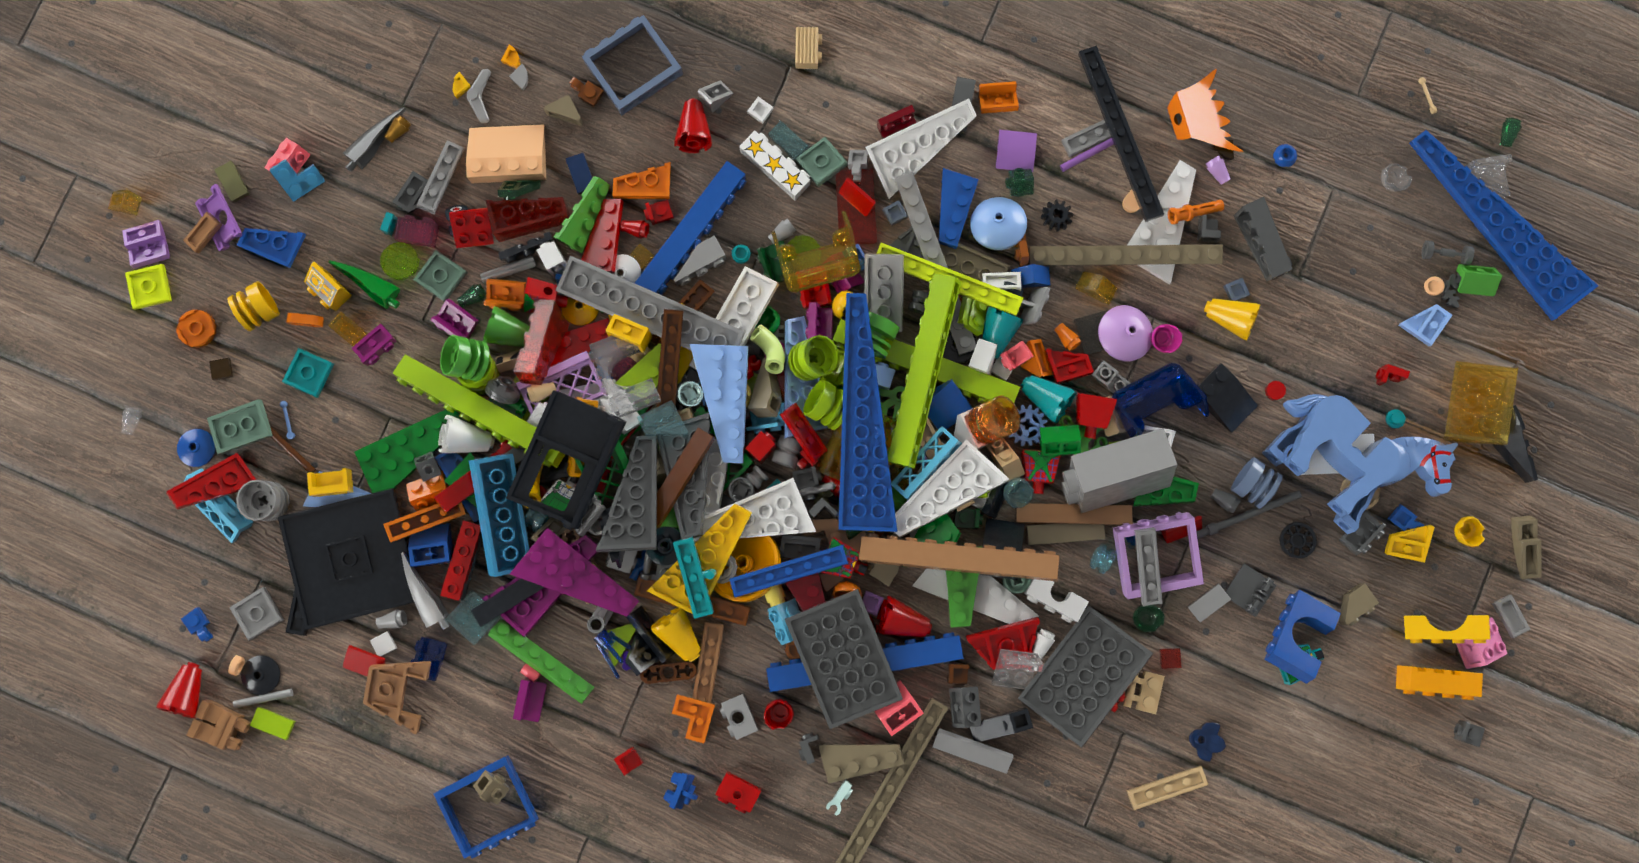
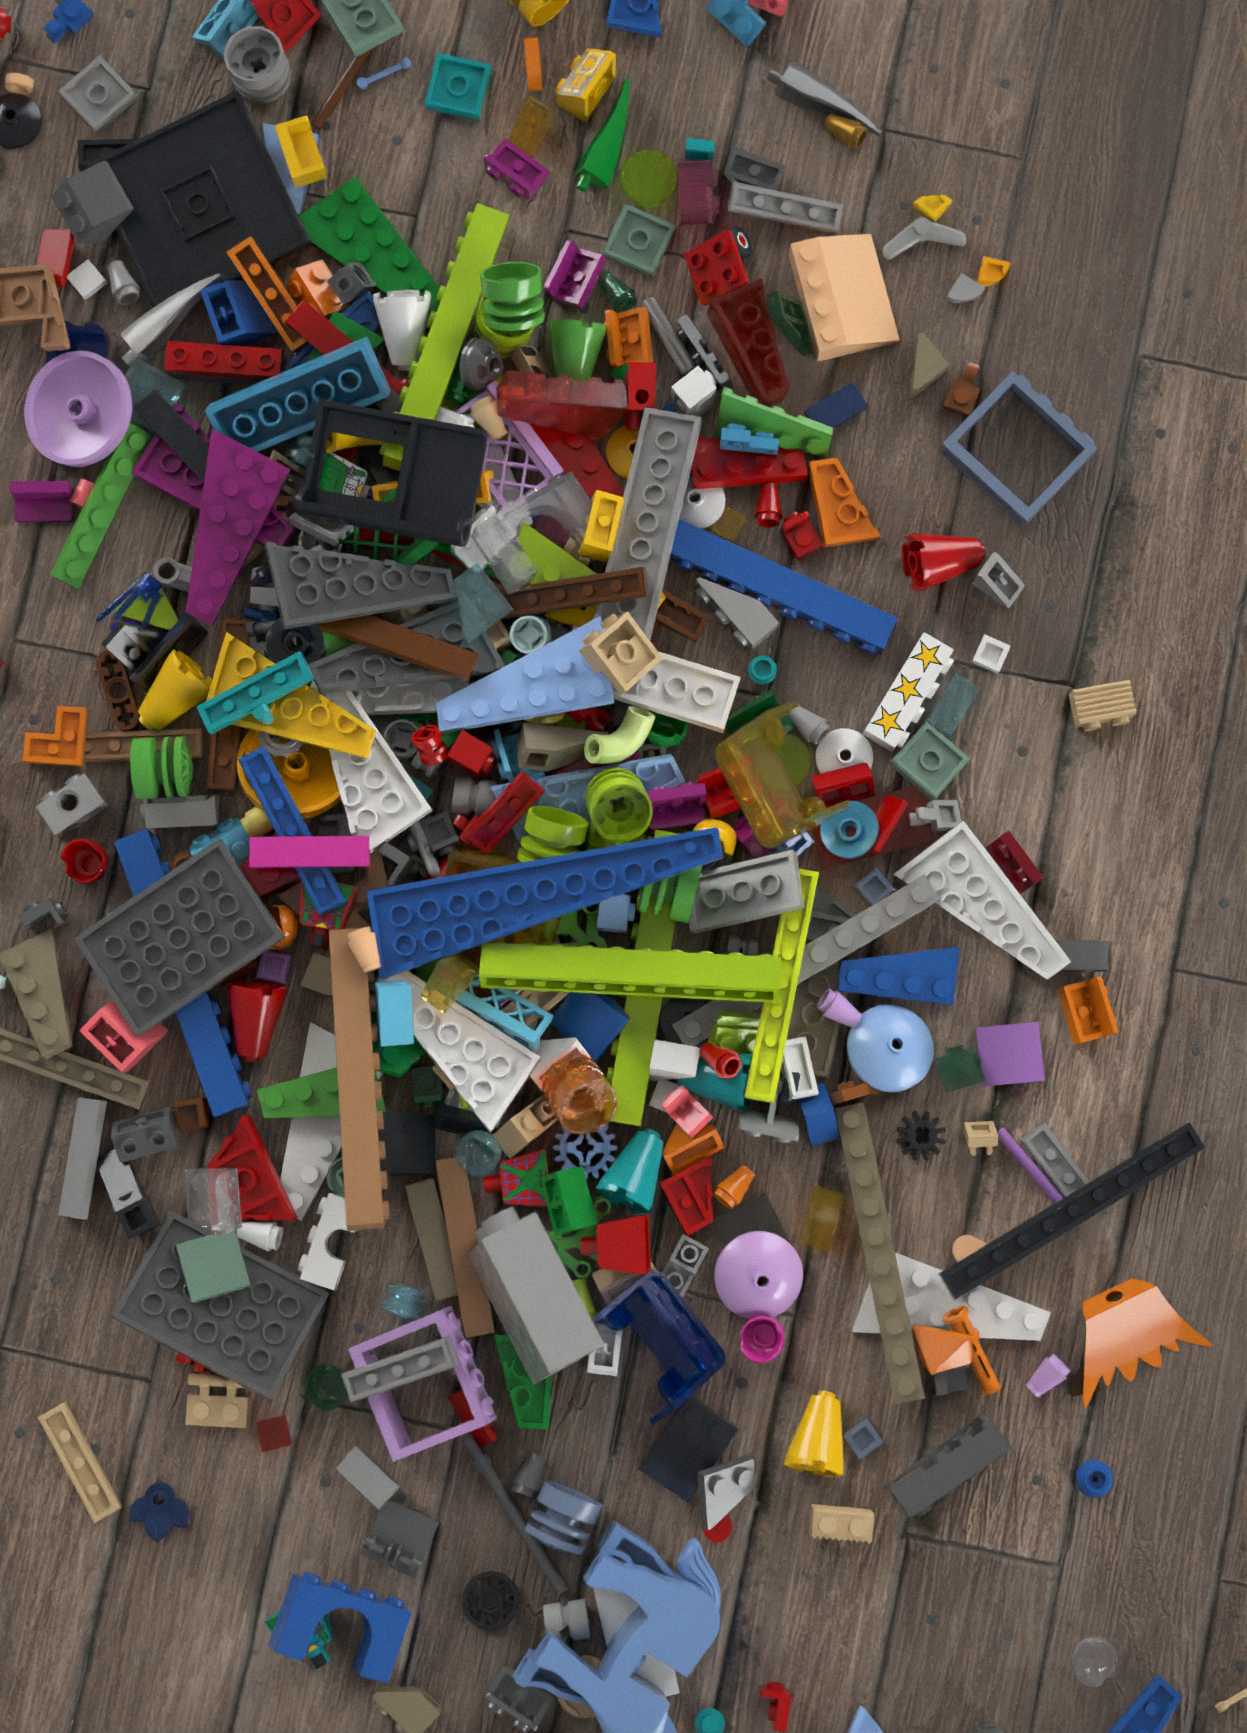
camera: 75 degrees right, 0 degrees up
(333, 628) = (92, 203): none -> dark grey slope
(472, 664) = (78, 408): none -> lavender dish
(590, 233) = (739, 439): none -> dark azure plate
(717, 334) = (620, 651): none -> tan plate
(728, 651) = (155, 767): none -> bright green wheel
(750, 471) = (429, 743): none -> red wheel
(758, 645) = (180, 812): none -> light grey window
(806, 561) = (309, 851): none -> dark pink tile
(809, 223) = (839, 740): none -> white dish
(826, 217) = (844, 784): none -> red slope
(855, 208) = (855, 816): none -> dark azure dish
(876, 537) = (364, 947): none -> light nougat cone
(907, 487) = (449, 981): none -> clear yellow slope
(921, 526) = (394, 1013): none -> medium azure hinge
(967, 250) = (838, 1008): none -> lavender cone
(991, 324) = (721, 1060): none -> red cone
(1060, 677) = (212, 1266): none -> sand green tile
(1063, 179) = (980, 1135): none -> tan tile
(1192, 229) = (941, 1348): none -> orange slope
(1254, 380) = (724, 1488): none -> wing
(1287, 312) = (841, 1523): none -> tan brick
(1319, 493) = (568, 1620): none -> light grey wheel

